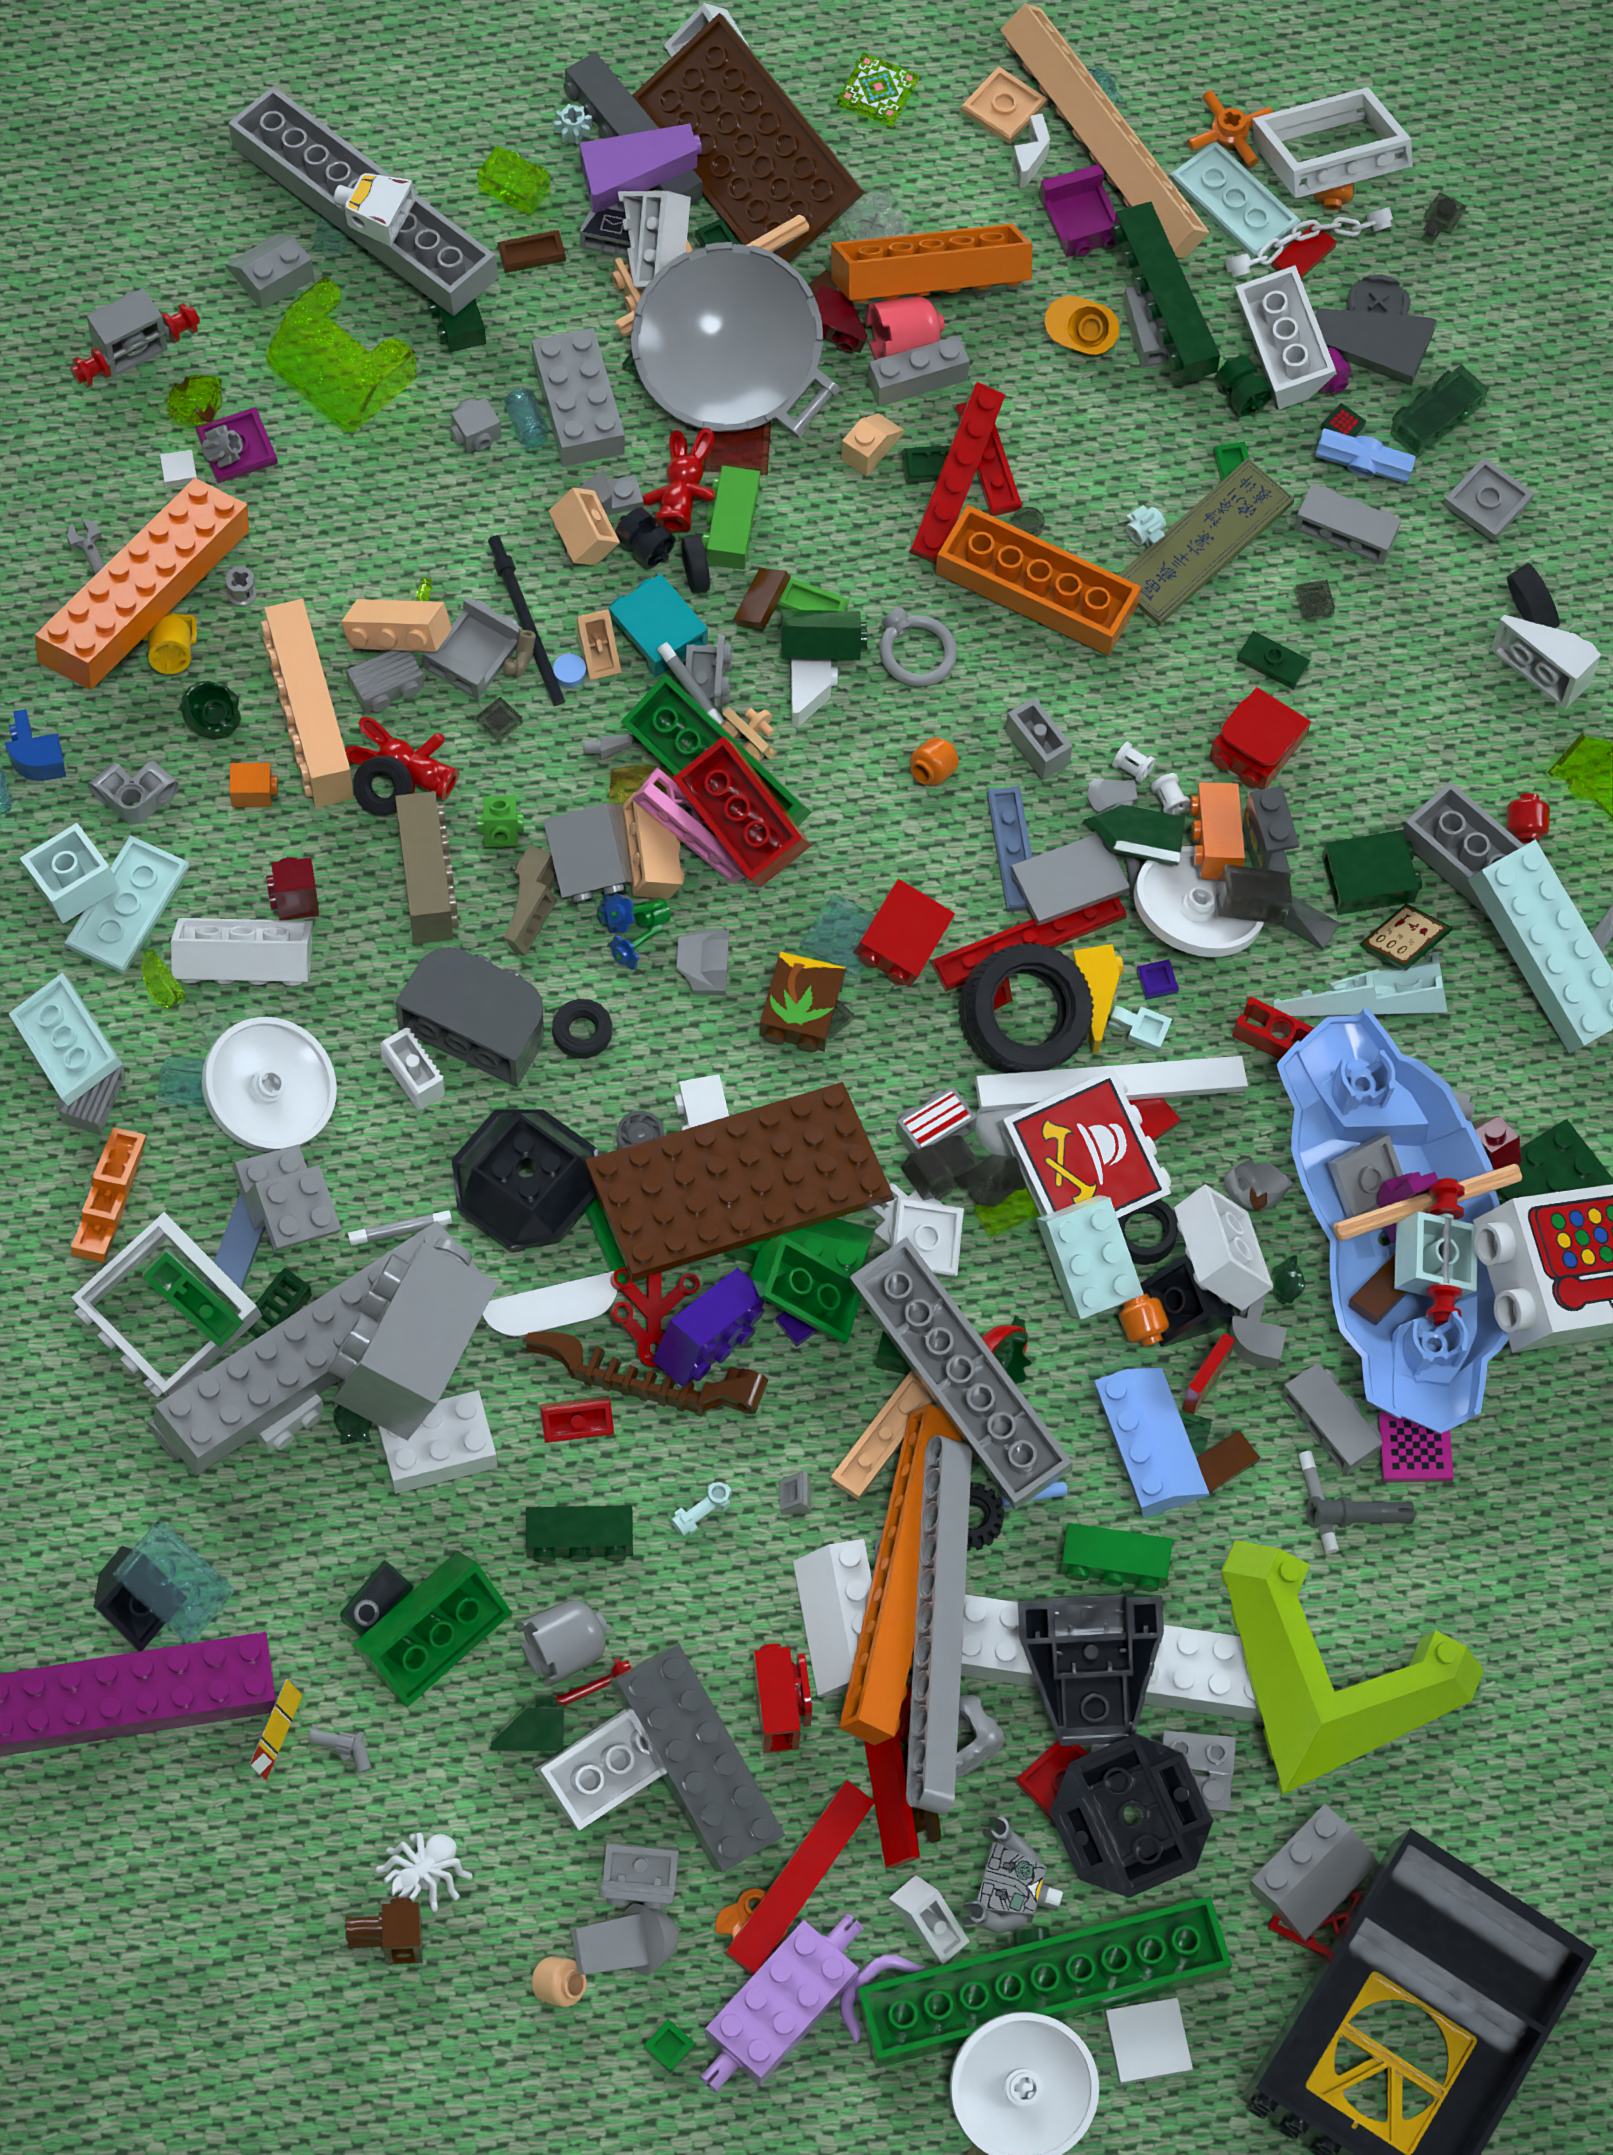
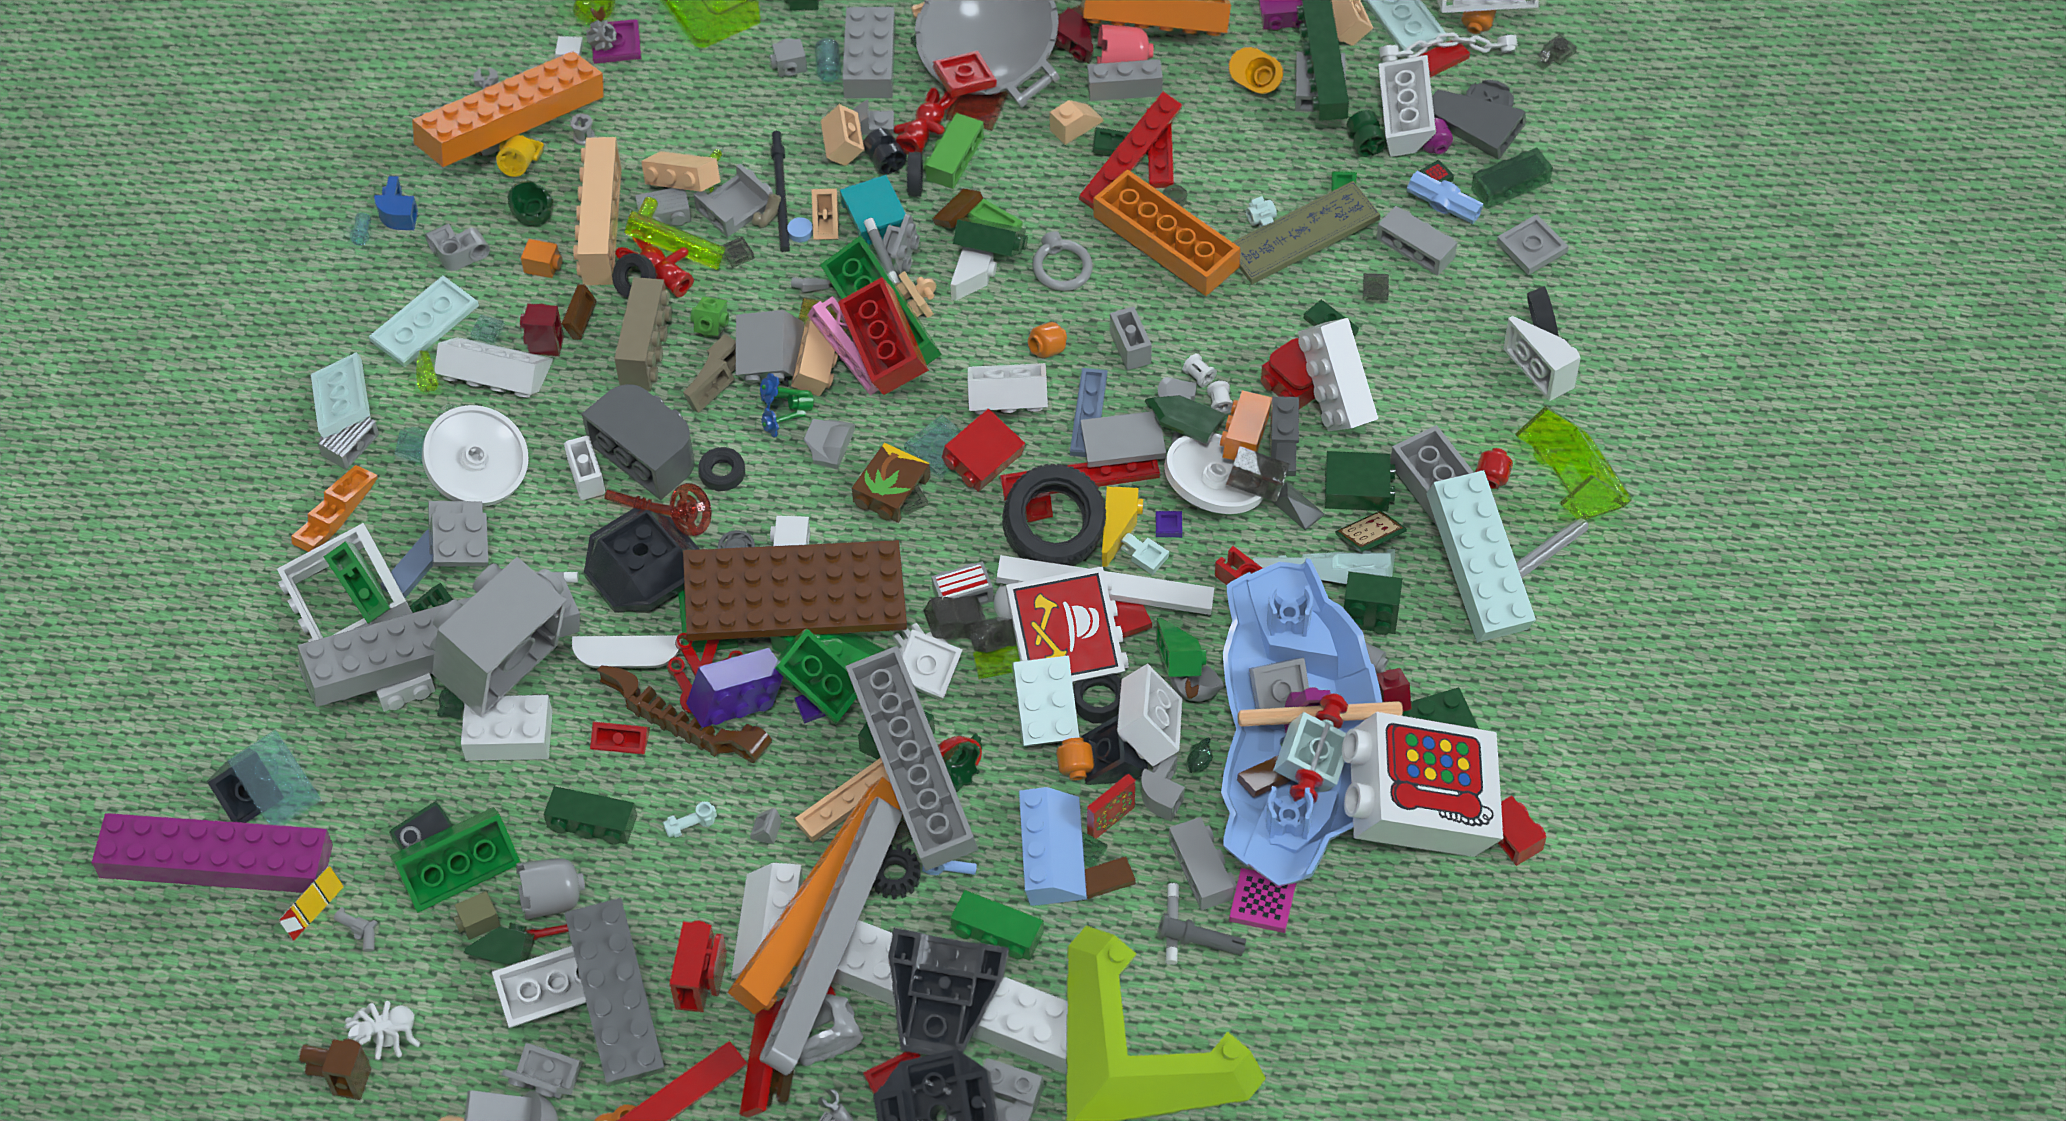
camera: 20 degrees right, 10 degrees down
(69, 873) = (386, 288): light aqua brick -> none
(214, 899) = (487, 329): none -> clear light blue tile
(328, 850) = (579, 312): none -> reddish brown tile
(413, 723) = (645, 228): none -> clear neon green piece
(485, 1696) = (476, 916): none -> olive brick
(553, 1097) = (681, 511): none -> clear red dish
(716, 407) = (964, 73): none -> red tile
(910, 842) = (1007, 387): none -> white brick
(1228, 1152) = (1179, 650): none -> green slope
(1317, 742) = (1337, 375): none -> white brick
(1439, 1033) = (1373, 601): none -> dark green brick

